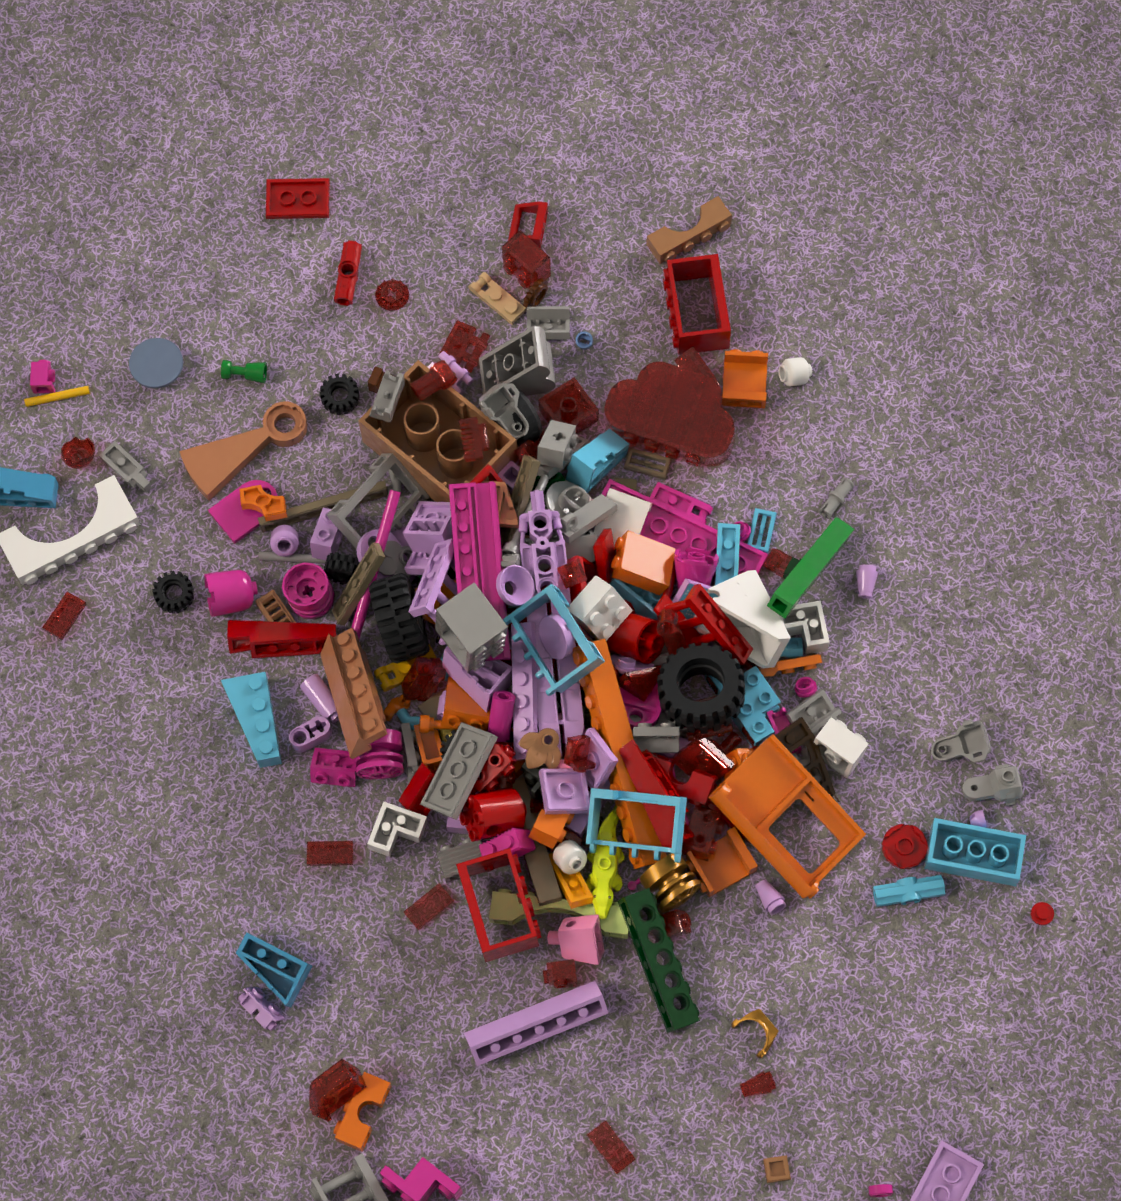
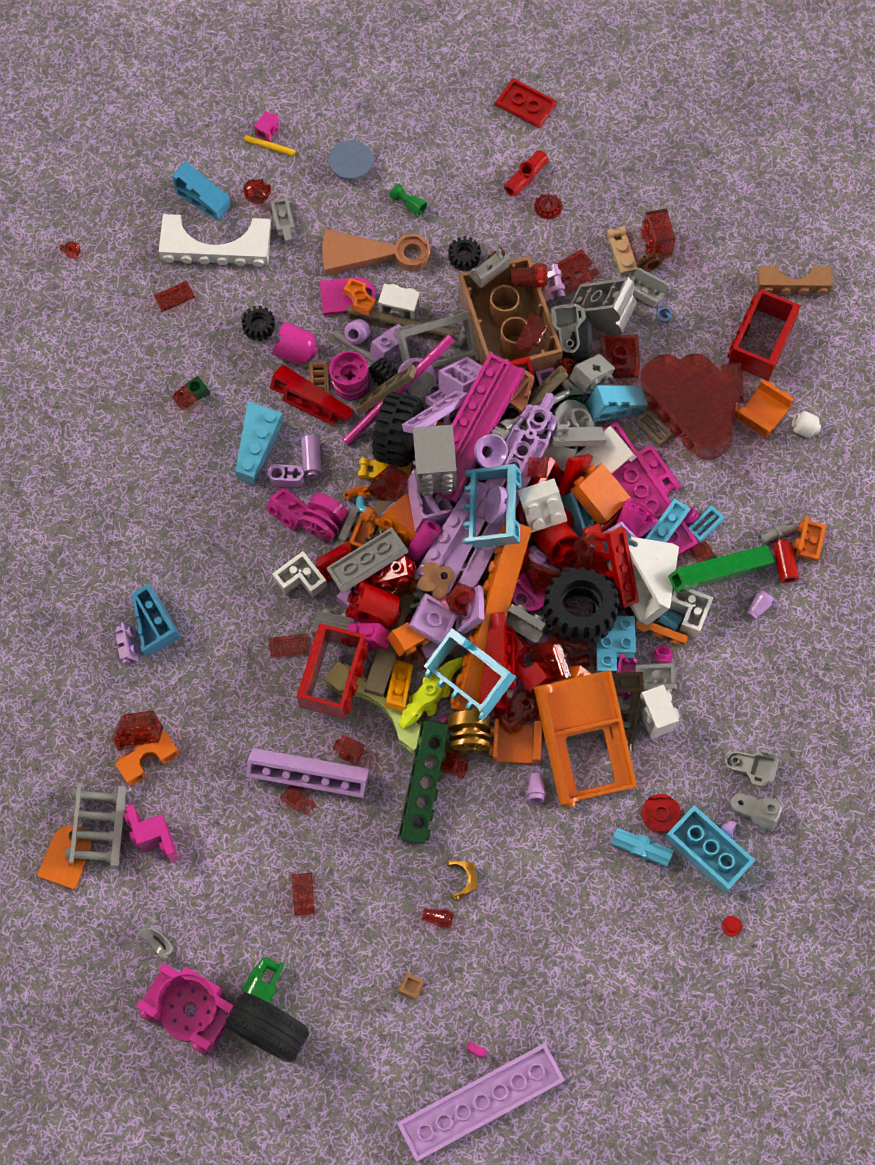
camera: 30 degrees right, 0 degrees up
(152, 707) = (190, 393): none -> leg
(309, 484) = (399, 301): none -> white brick
(329, 853) = (245, 566): clear red plate -> none
(353, 692) = (333, 462): nougat slope -> none
(538, 1056) = (296, 798): none -> clear red plate
(539, 208) = (692, 209): red tile -> none
(570, 857) = (408, 670): white head -> none
(579, 939) = (377, 732): bright pink torso -> none
(863, 521) = (785, 561): none -> red brick
(873, 486) = (810, 540): none -> orange bracket

